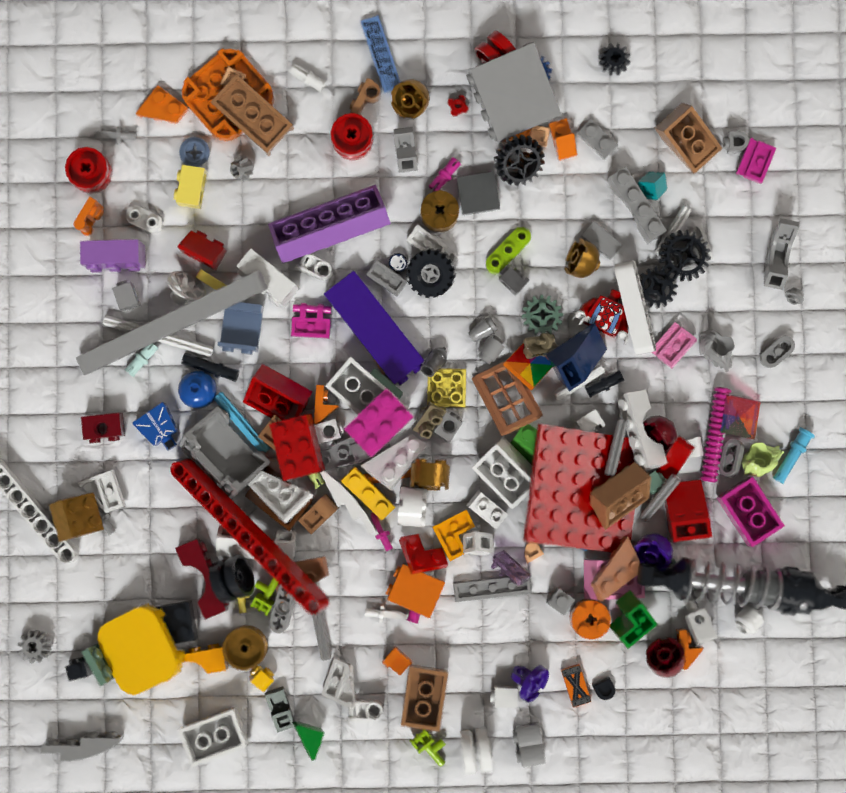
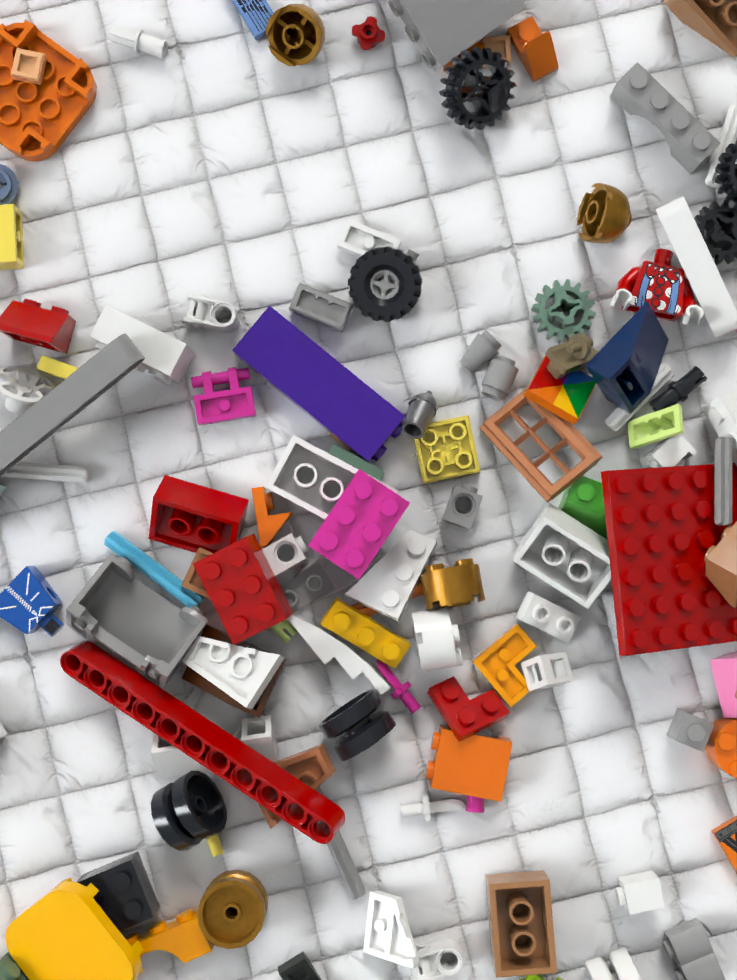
camera: 10 degrees left, 0 degrees up
(194, 555) = (127, 786): dark red arch -> none
(197, 389) = (76, 535): blue cylinder -> none
(218, 370) = (100, 499): black pin -> none
(241, 168) = (69, 193): light grey gear -> none
(241, 328) = (122, 428): sand blue panel -> none
(252, 114) = (66, 108): medium nougat plate -> none
(261, 677) = (268, 948): yellow plate -> none
(264, 598) = (244, 830): lime arm -> none
(278, 612) = (271, 843): light grey beam -> none
(318, 514) = (298, 680): medium nougat plate -> none
(329, 224) = (217, 244): medium lavender brick -> none
(350, 125) = (222, 110): red wheel -> none
(350, 552) = (359, 728): none -> black wheel
(358, 104) = (221, 63): medium nougat plate -> none
(397, 661) = (465, 873): orange panel -> none
(398, 262) = (332, 281): tile -> none
(405, 149) = (305, 111): light grey brick -> none
(429, 418) = (430, 503): dark tan hips -> none
(439, 200) = (373, 175): pearl gold brick -> none
(444, 174) = (371, 138): dark pink pin -> none
(478, 193) = (427, 153): dark grey tile -> none
(488, 588) = (581, 731): light grey tile -> none
(502, 256) = (485, 238): lime plate -> none
(511, 568) = (609, 699): clear purple plate -> none
(513, 280) = (507, 268): flat silver brick -> none
(530, 681) = (673, 860): dark purple tile -> none
(532, 551) = (628, 666): light nougat tile -> none
(583, 403) = (655, 426): none -> yellowish green slope
(597, 139) = (583, 37): light grey plate -> none
(602, 240) = (632, 183): light grey tile -> none
(653, 185) = (682, 83): teal panel -> none

